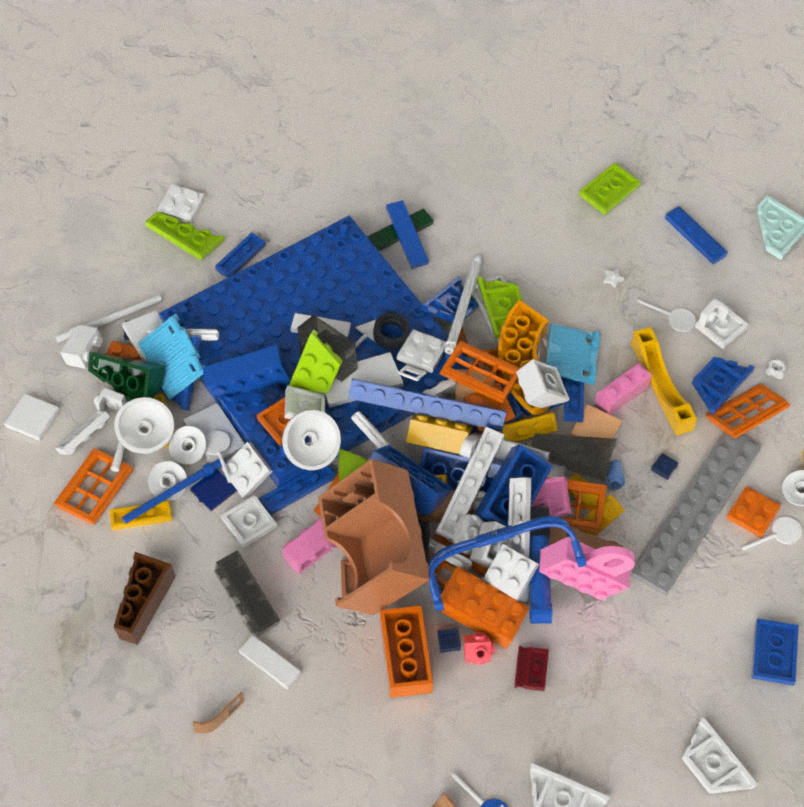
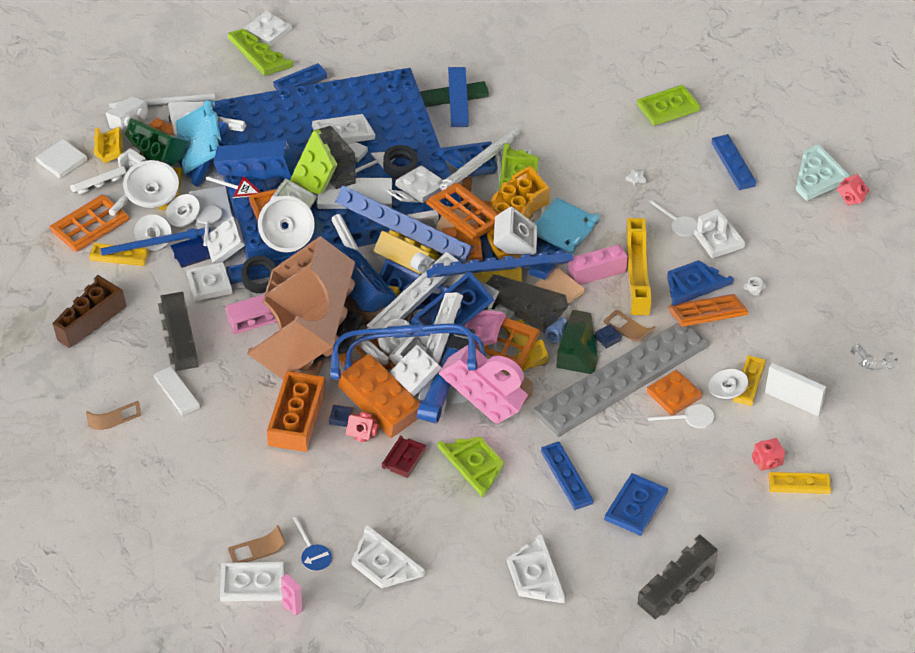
camera: 20 degrees right, 10 degrees down
(76, 387) = (108, 144): none -> yellow bracket
(247, 406) = (243, 190): none -> piece
(309, 488) = (253, 261): none -> black tyre
(324, 304) = (350, 128): none -> white tile
(536, 427) = (493, 264): none -> blue plate
(602, 652) = (474, 461): none -> lime wing
(642, 487) = (578, 344): none -> dark green wedge
(682, 451) = (630, 329): none -> medium nougat piece
(694, 638) = (566, 475): none -> blue tile

